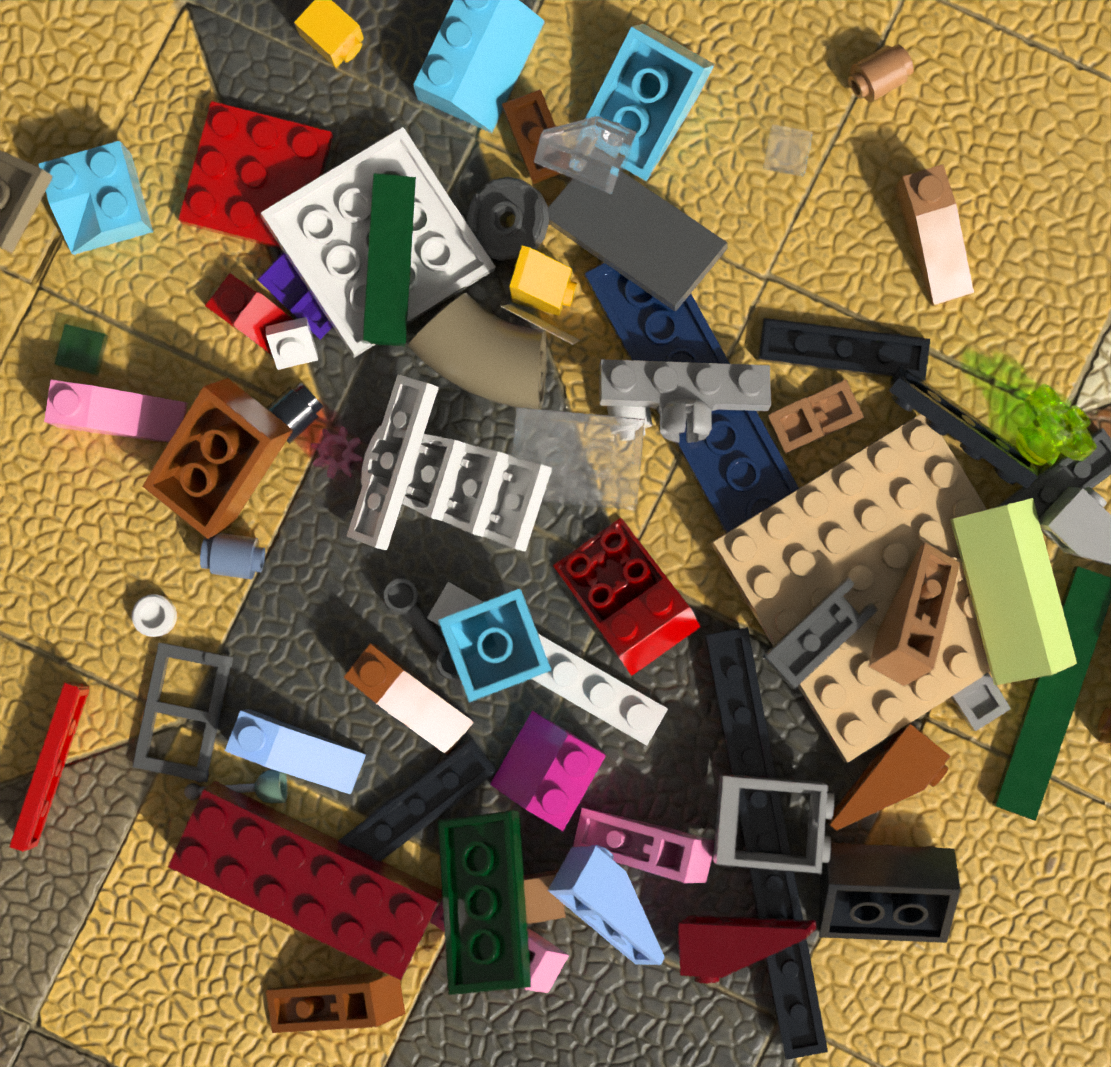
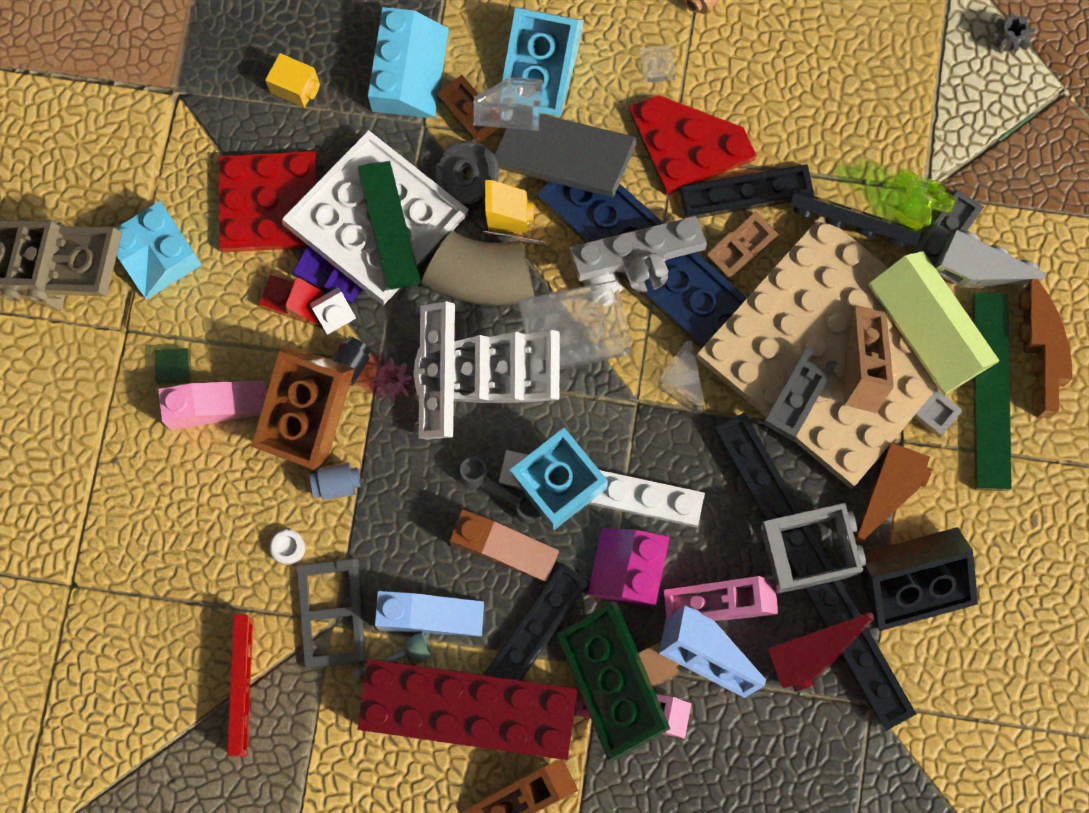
camera: 20 degrees left, 10 degrees down
(627, 596) = (646, 419): red slope -> none
(687, 563) = (682, 379): none -> clear slope
(792, 263) = (688, 143): none -> red plate
(935, 233) = (784, 88): slope -> none

